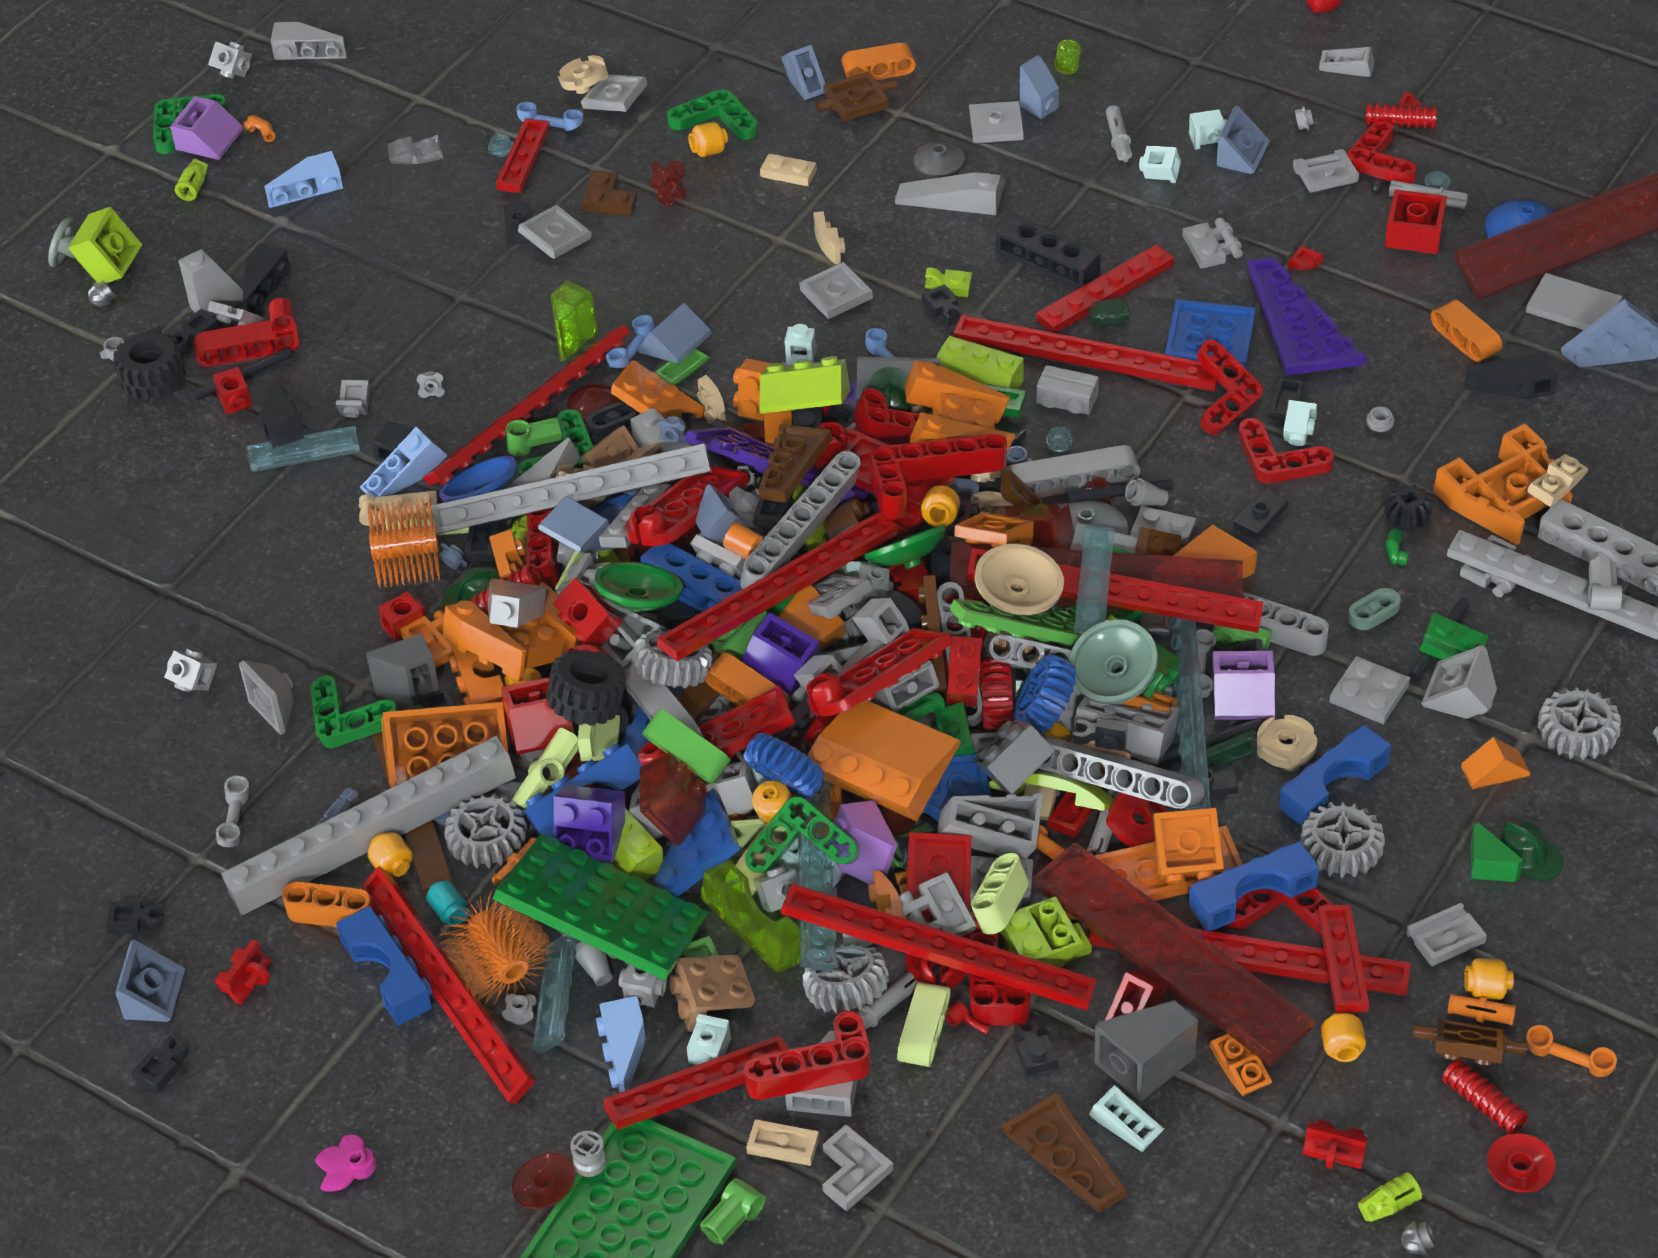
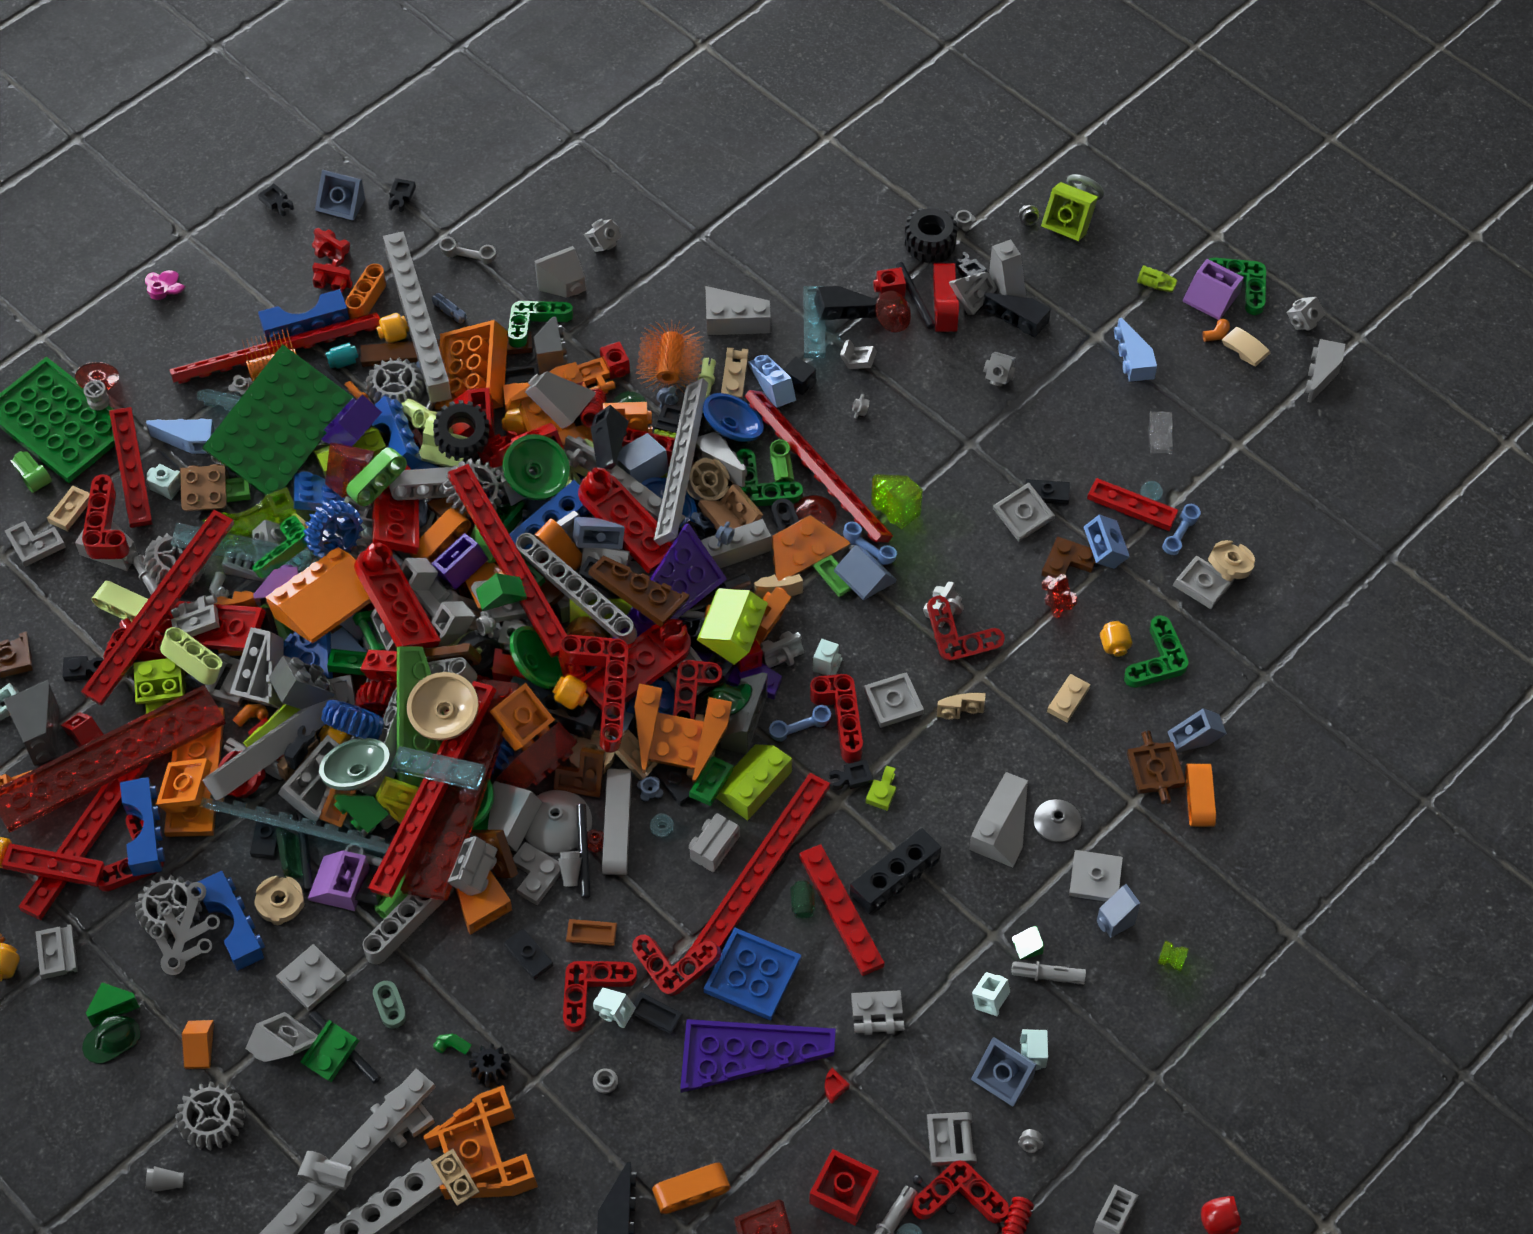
camera: 100 degrees right, 10 degrees up
(280, 372) = (893, 311): none -> clear red dish
(281, 99) = (1246, 345): none -> tan slope
(297, 953) = (333, 274): none -> red hips
(303, 520) = (735, 313): none -> light grey wedge
(354, 274) = (1006, 365): none -> light grey brick
(570, 541) = (607, 436): none -> black slope
(584, 159) = (1106, 541): none -> medium blue brick
(698, 267) = (952, 597): none -> light grey hips
(742, 253) = (952, 637): none -> red beam
(839, 573) = (500, 591): none -> green slope
(851, 323) = (845, 718): none -> red beam
(879, 587) = (485, 625): none -> light grey plate
(1090, 152) = (1028, 943): none -> slope
(1195, 543) = (473, 866): none -> light grey brick
(1214, 468) = (591, 932): none -> dark orange tile
(1368, 805) = (183, 932): none -> light grey plant

